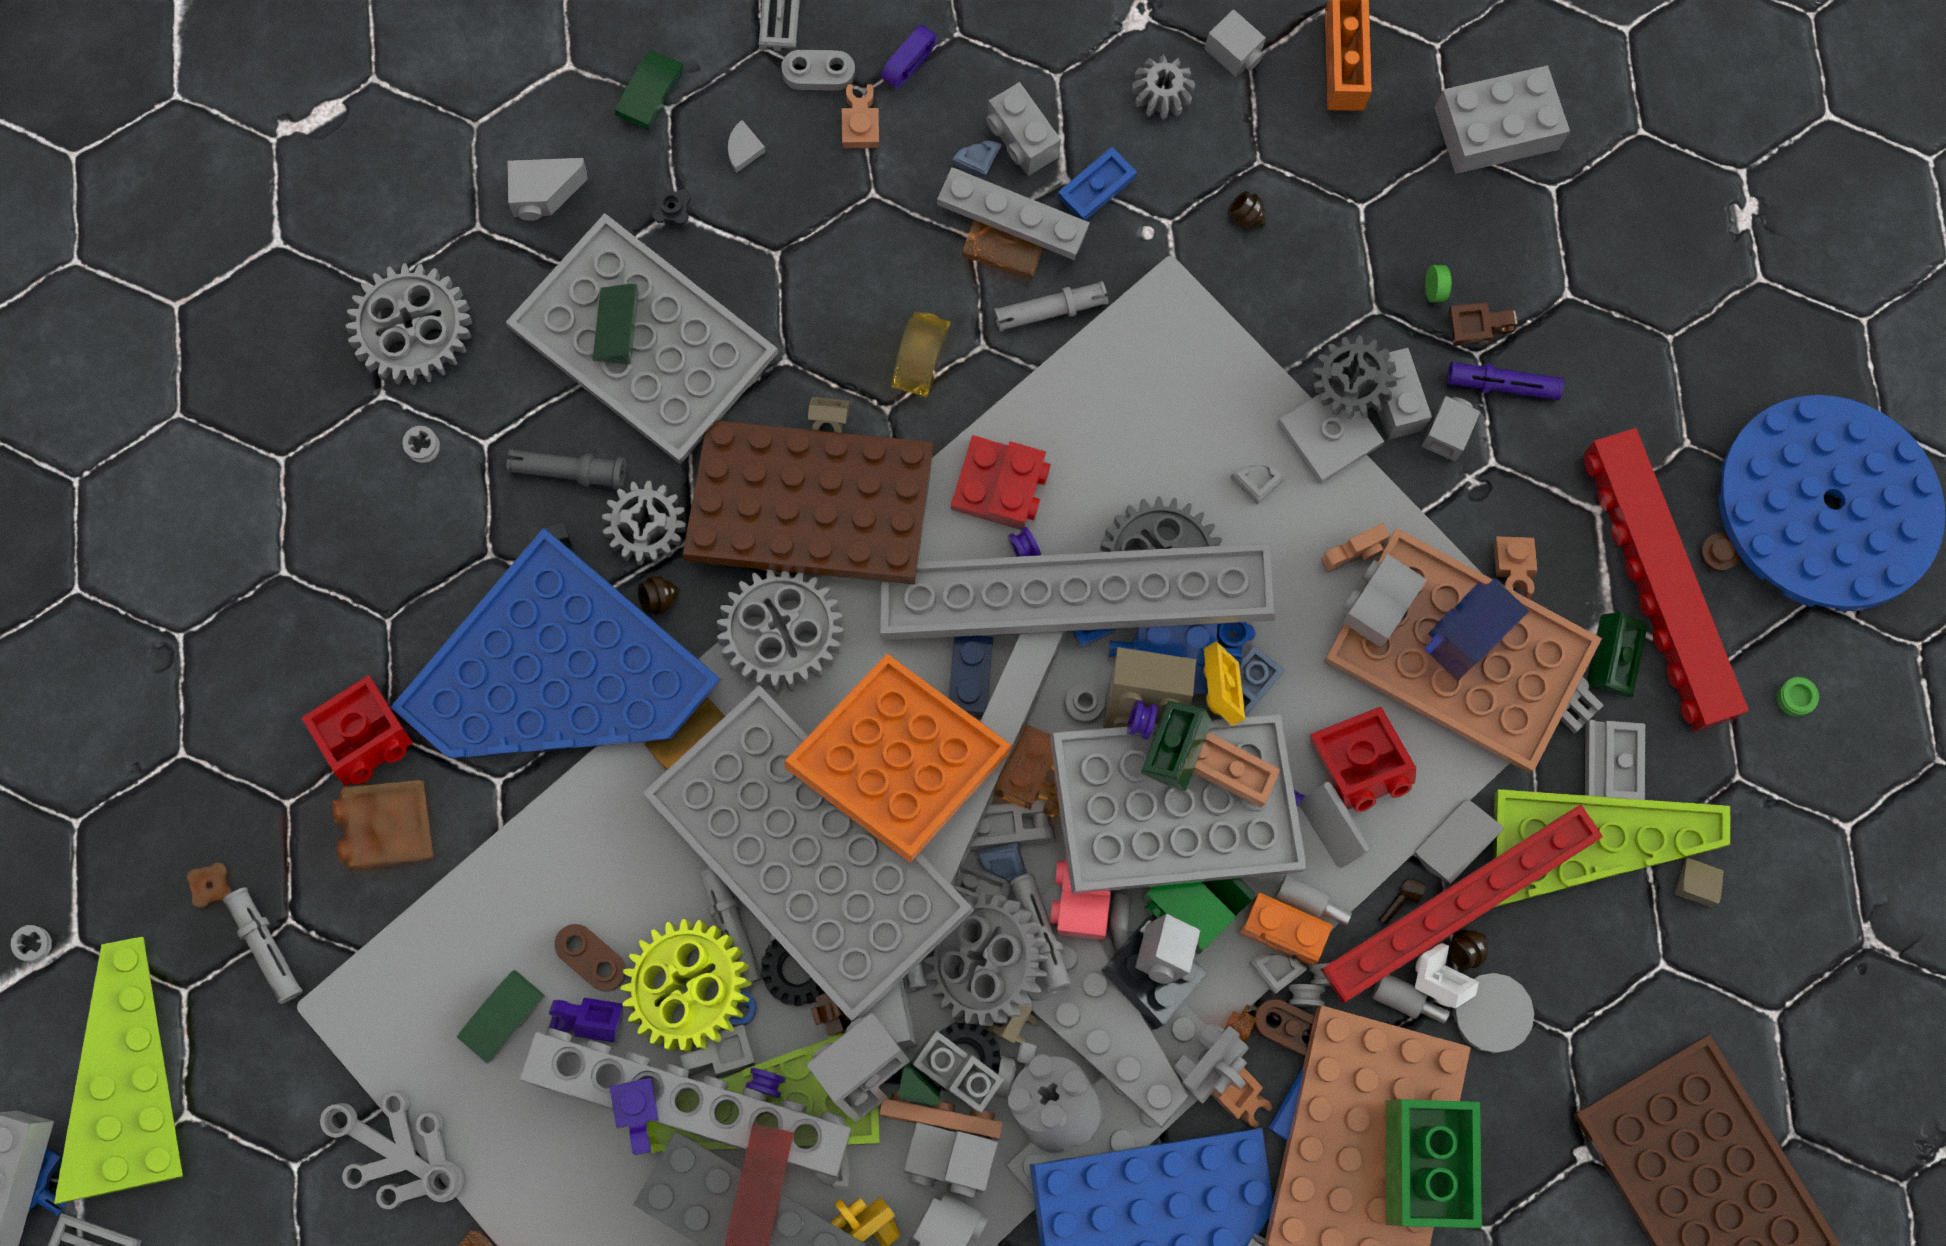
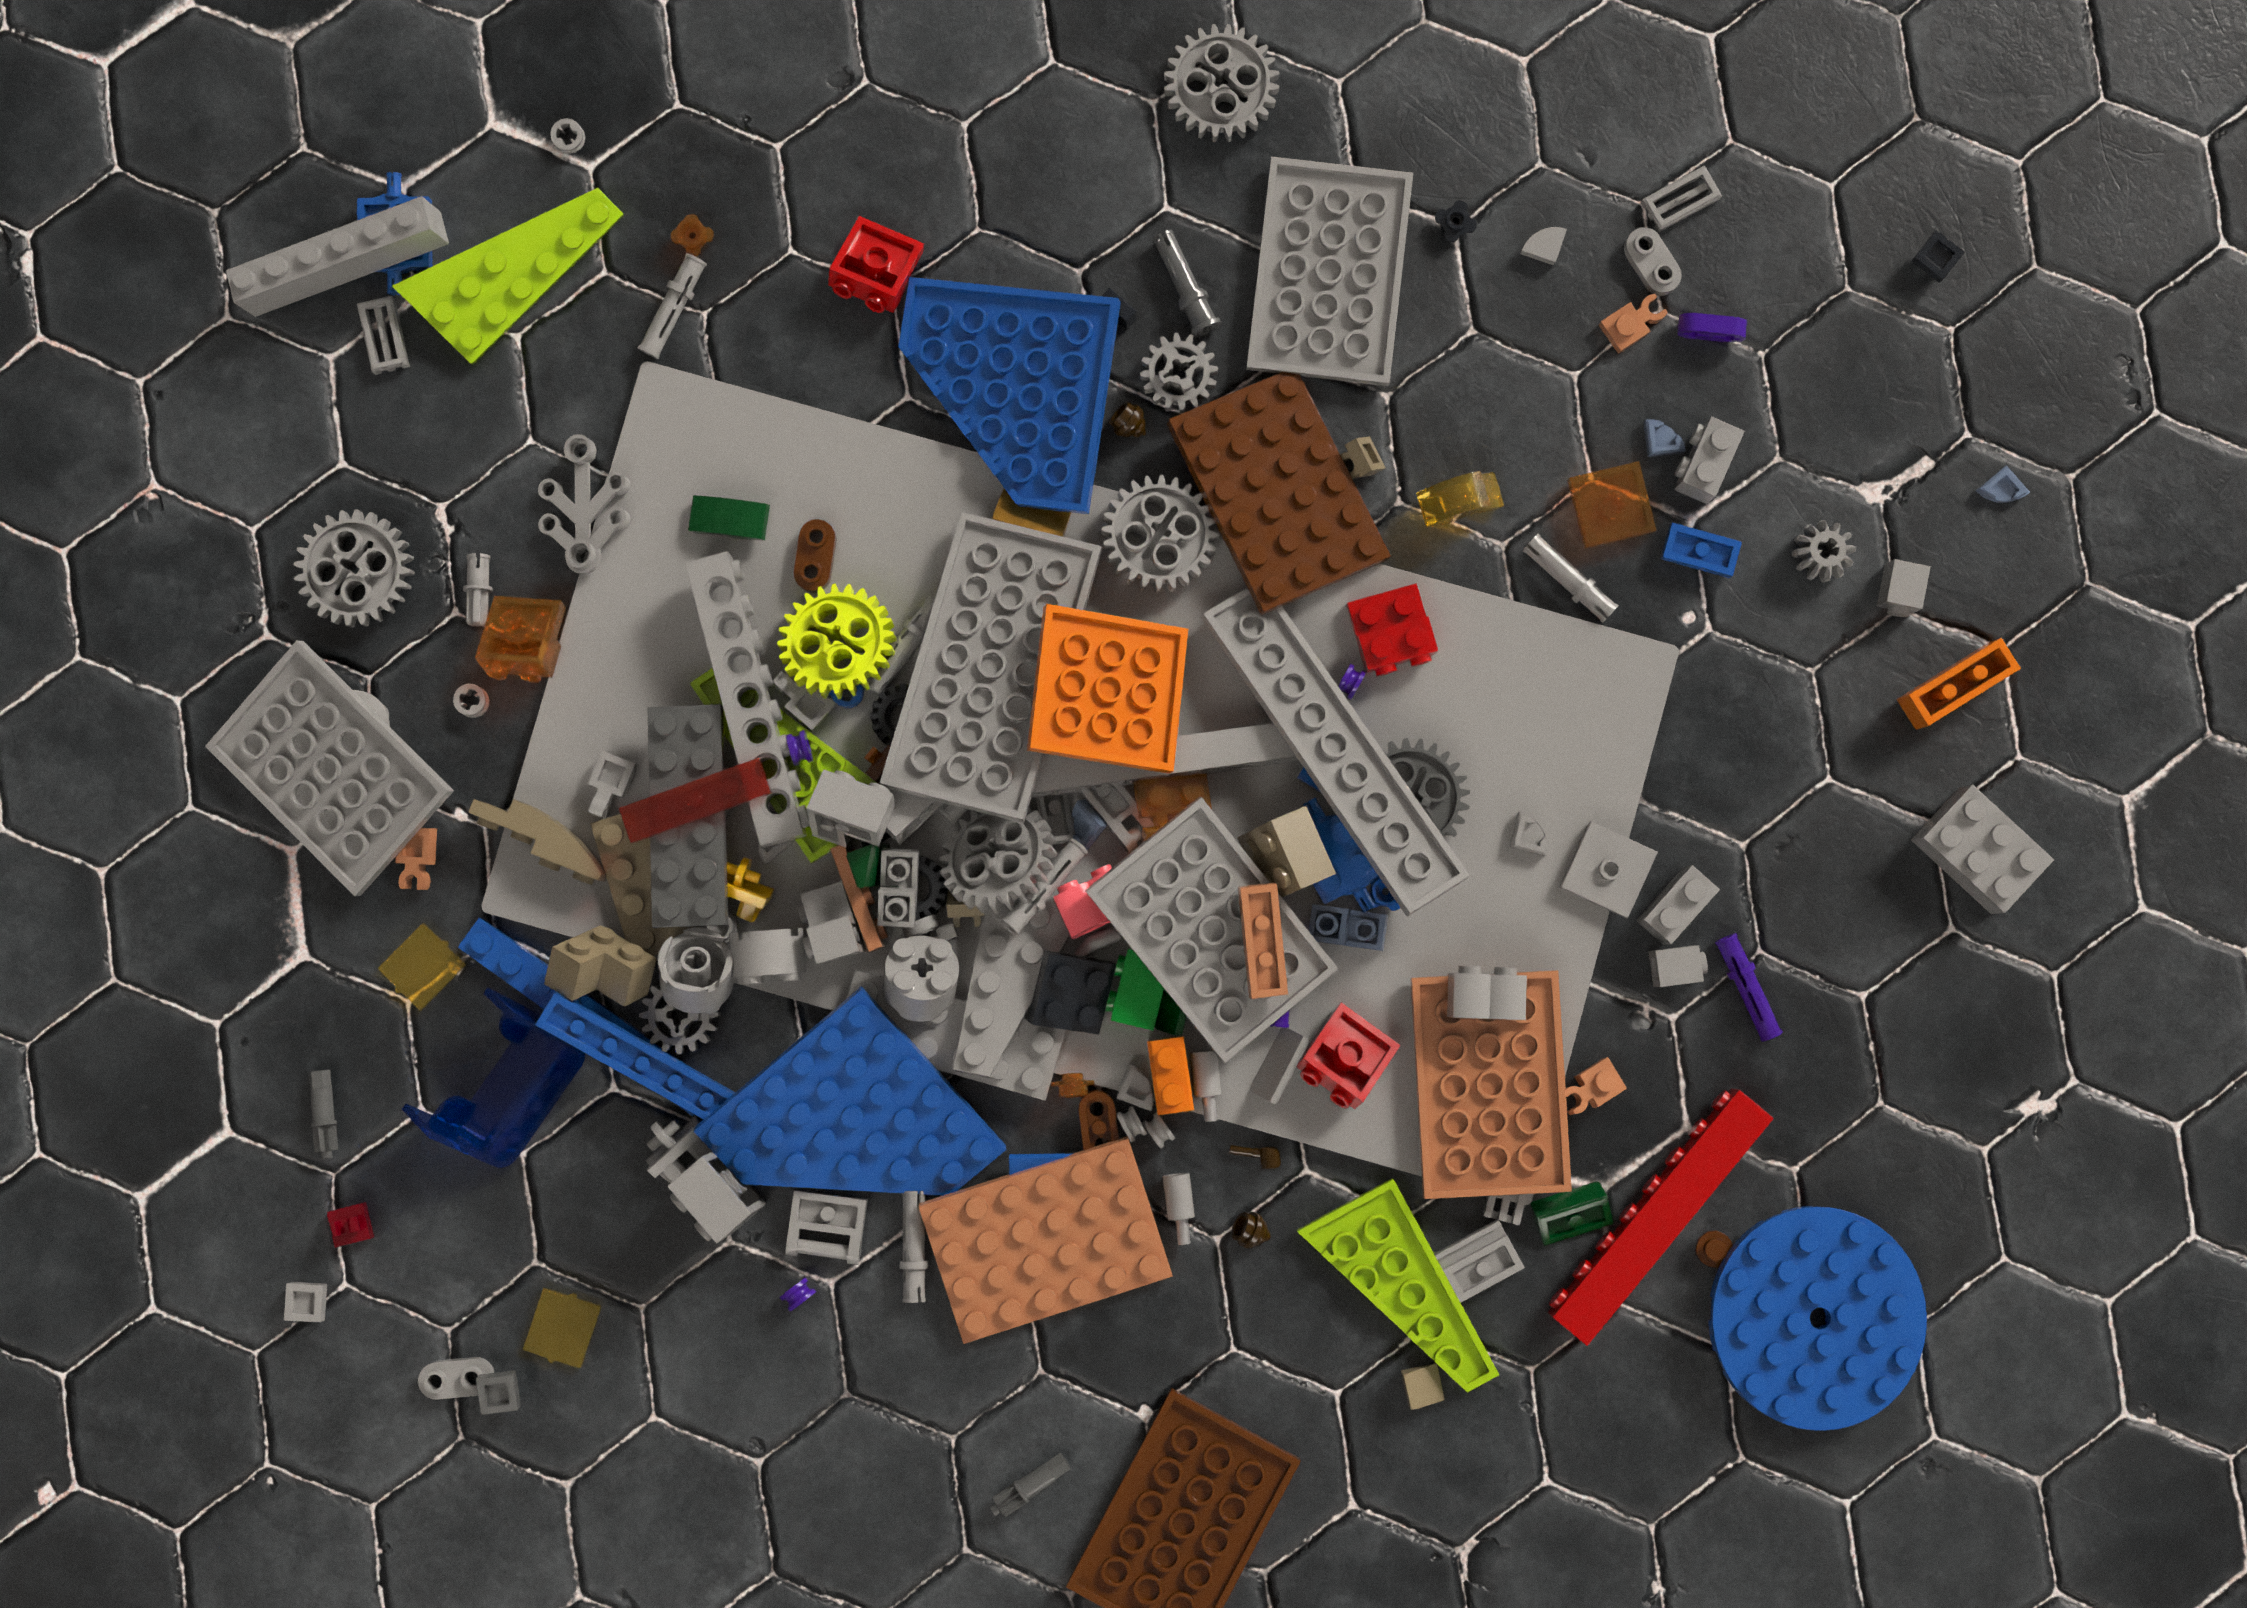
camera: 70 degrees right, 10 degrees up
(382, 825) = (816, 333): clear orange plate -> none
(425, 454) = (1139, 150): light grey bush -> none
(542, 185) = (1404, 108): light grey slope -> none
(590, 1020) = (767, 587): dark purple plate -> none
(616, 324) = (1324, 243): dark green slope -> none
(635, 1107) = (715, 661): dark purple plate -> none
(648, 89) = (1543, 136): dark green slope -> none
(971, 673) = (1218, 705): dark blue plate -> none
(1013, 213) = (1627, 497): light grey plate -> none
(1078, 712) = (1243, 813): light grey plate -> none
(1142, 719) = (1256, 860): dark purple bush -> none
(1167, 949) = (1090, 991): light grey brick -> none
(1177, 745) = (1251, 900): dark green slope -> none
(1217, 1067) = (1026, 1085): light grey hips -> none
(1223, 684) = (1332, 908): yellow plate -> none
(1243, 1102) = (1020, 1116): nougat plate -> none
(1247, 211) = (1759, 687): dark brown plate -> none
(1340, 373) = (1668, 875): dark grey gear -> none
(1365, 545) = (1526, 953): nougat plate -> none
(1433, 1163) = (1056, 1297): green brick -> none
(1438, 283) = (1798, 882): bright green tile -> none
(1442, 982) = (1209, 1224): white bracket -> none
(1458, 841) = (1331, 1171): light grey slope -> none
(1461, 903) = (1281, 1203): red tile -> none
(1475, 324) = (1782, 932): reddish brown plate -> none
(1482, 622) = (1507, 1084): clear blue brick -> none
(1497, 1015) = (1211, 1279): light grey tile -> none
(1797, 697) = (1630, 1381): bright green tile -> none

